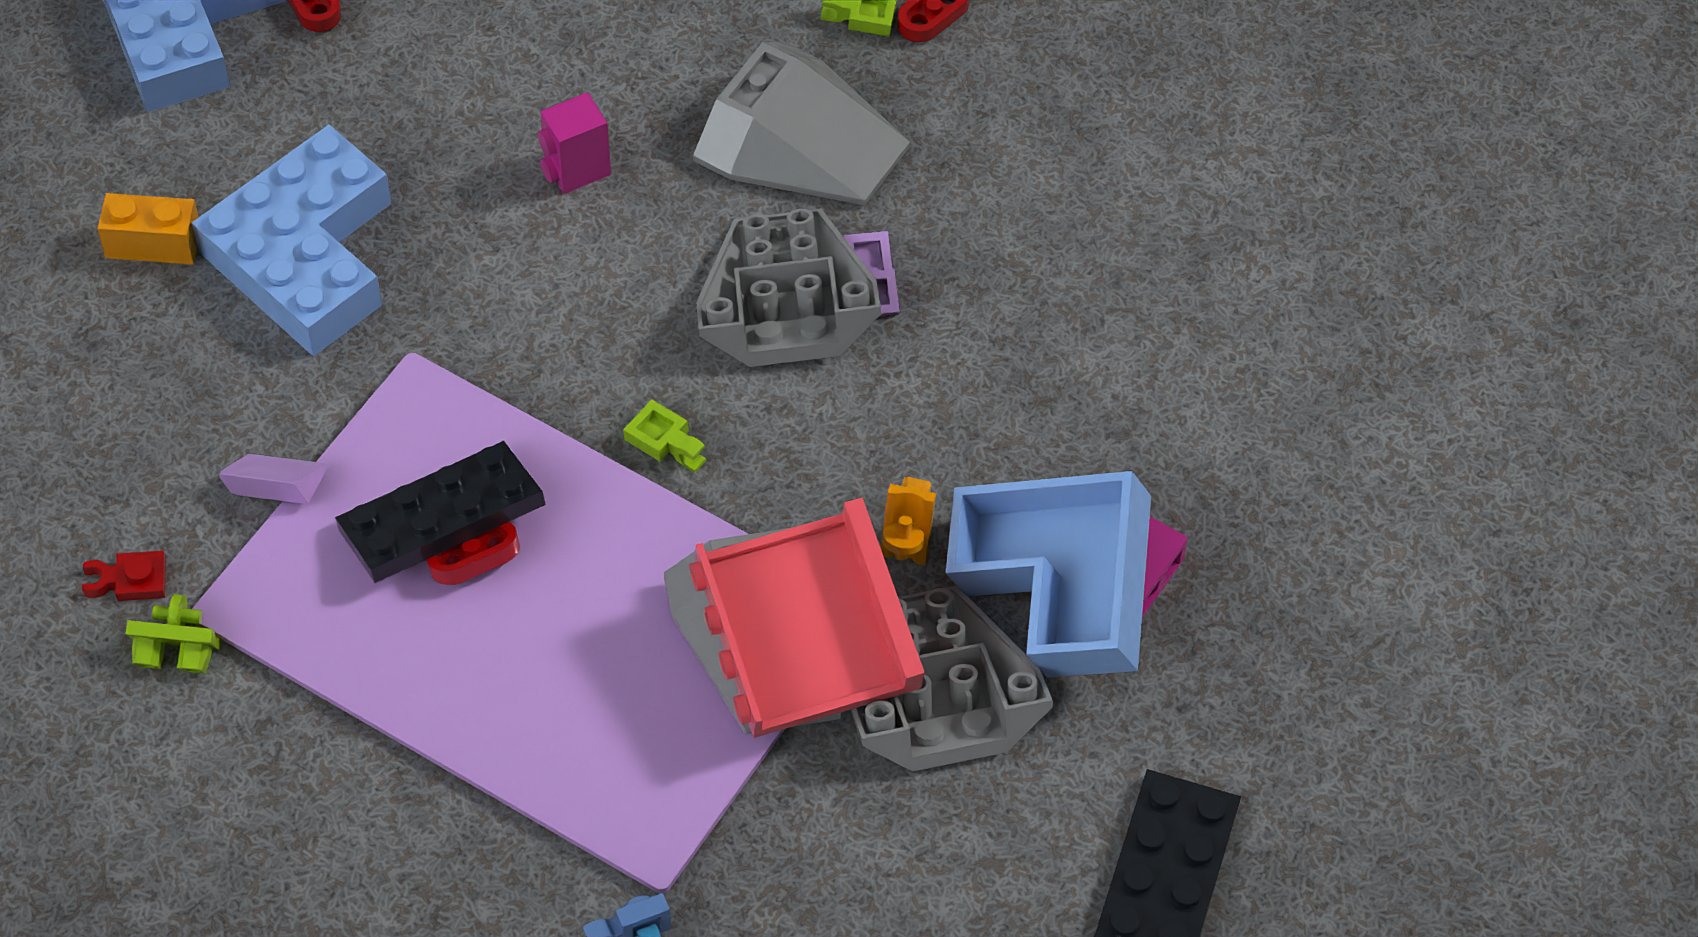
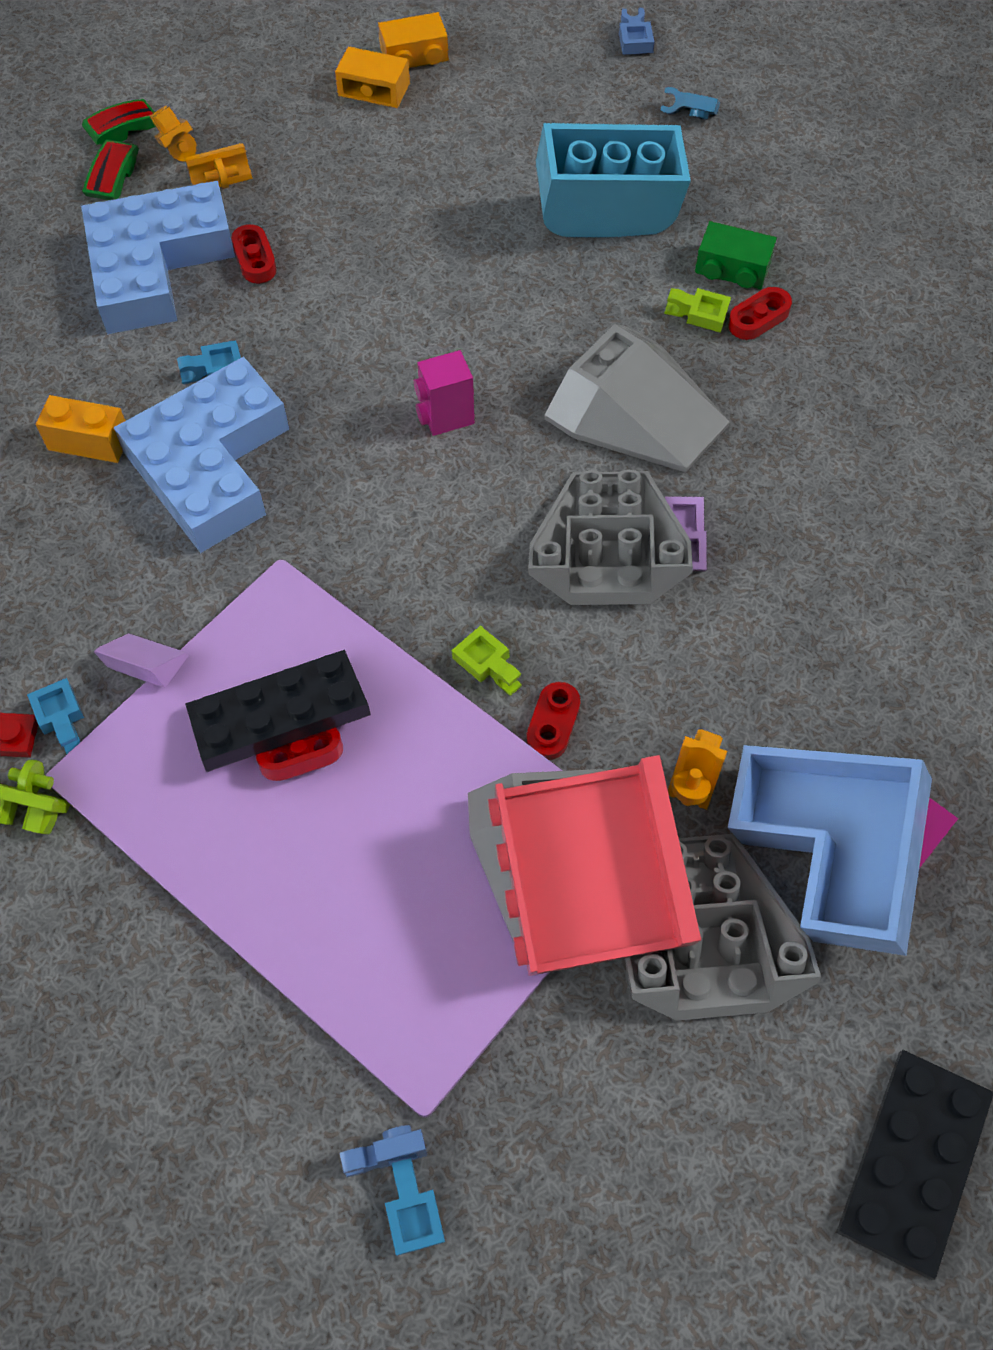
camera: 10 degrees right, 5 degrees up
(189, 542) = (56, 711): none -> dark azure plate
(285, 134) = (212, 359): none -> dark azure plate
(747, 489) = (554, 718): none -> red plate

